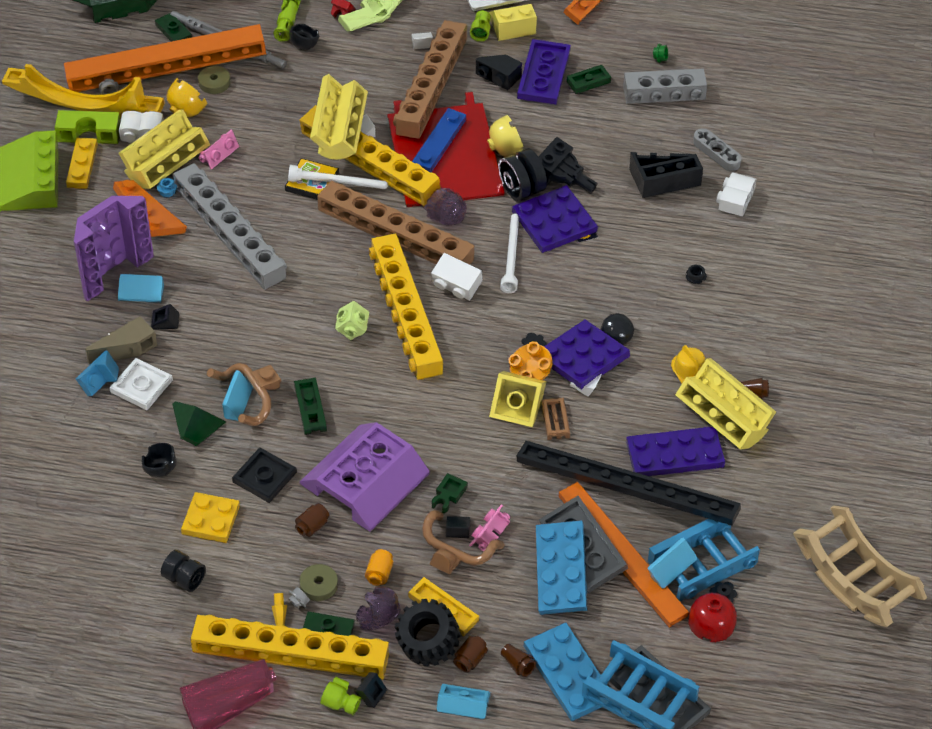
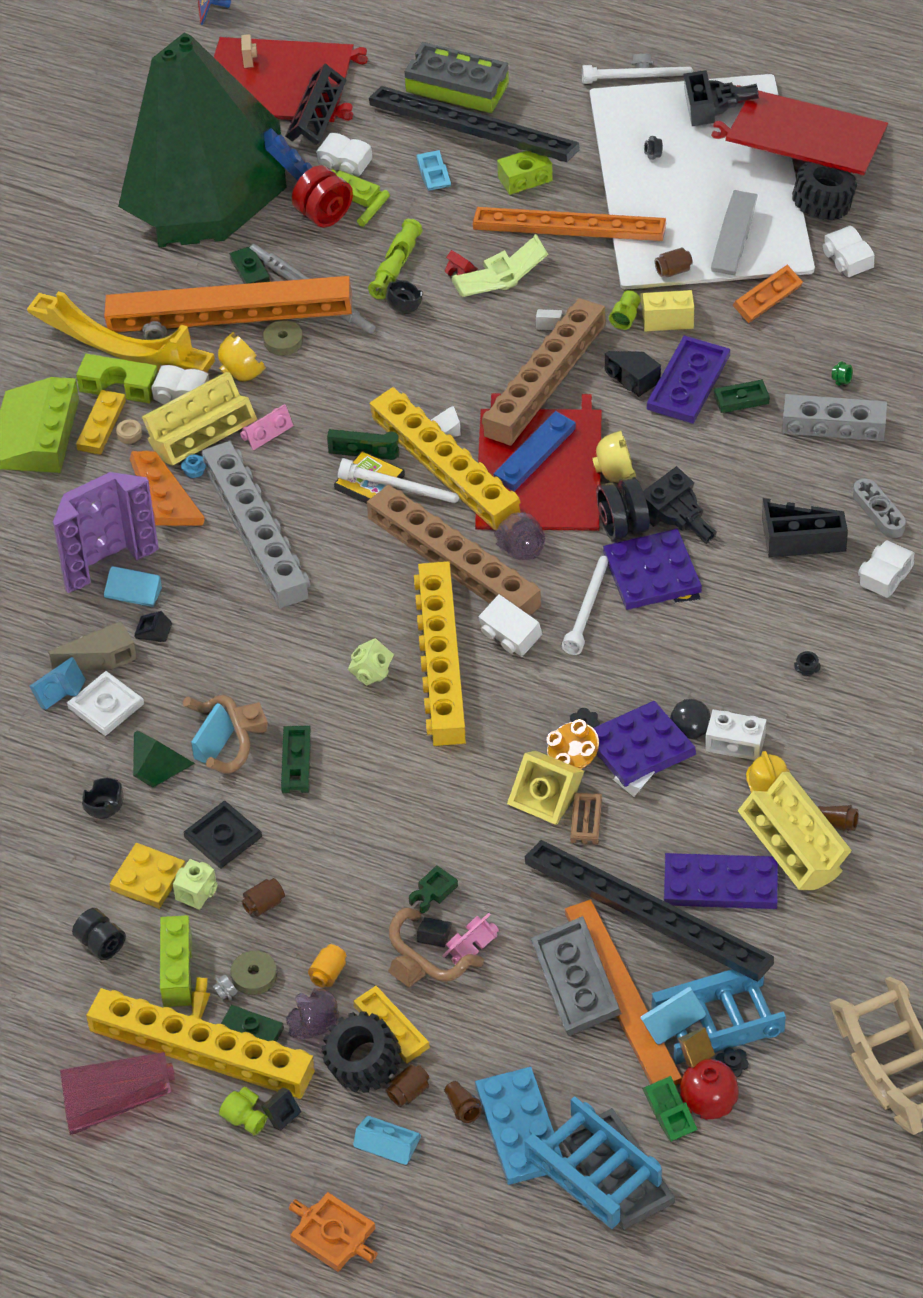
camera: 15 degrees right, 0 degrees up
(106, 167) = (129, 431): none -> tan tile
(253, 517) = (194, 883): none -> yellowish green brick
(253, 582) = (175, 961): none -> lime arch
(292, 152) = (352, 443): none -> dark green plate
(338, 118) = (412, 407): light yellow brick -> none
(379, 478) = (351, 859): medium lavender slope -> none
(561, 567) = (541, 1000): dark azure plate -> none
(656, 336) = (735, 735): none -> white brick
(685, 639) = (669, 1109): none -> green slope
(696, 585) = (696, 1047): none -> pearl gold slope

